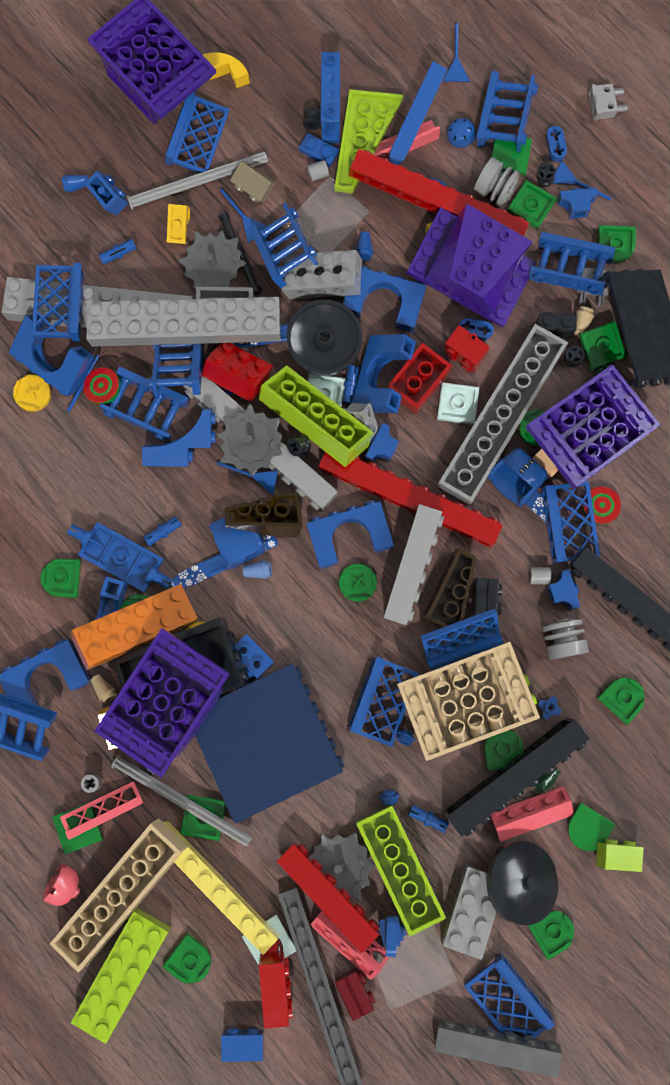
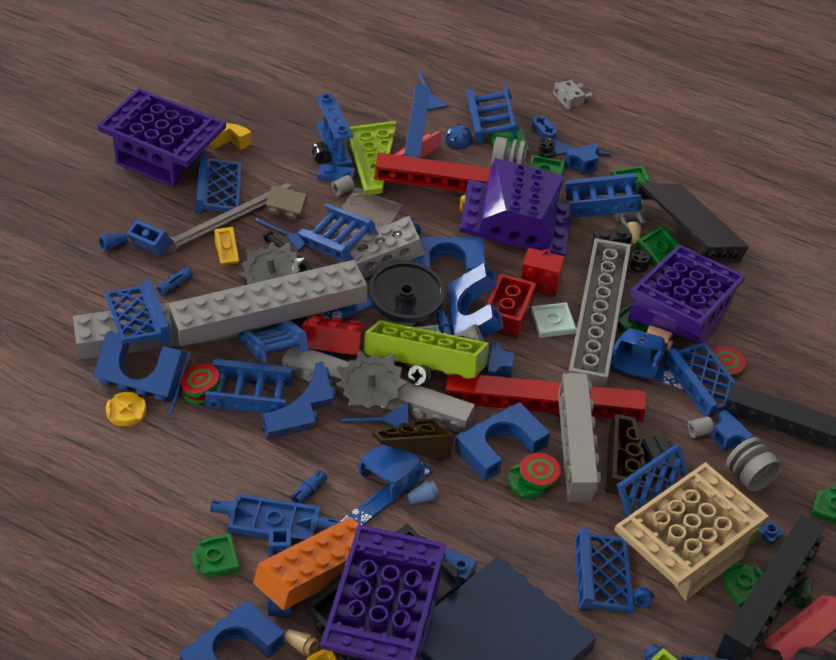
camera: 25 degrees left, 35 degrees down
(369, 580) = (540, 470): none -> red tile

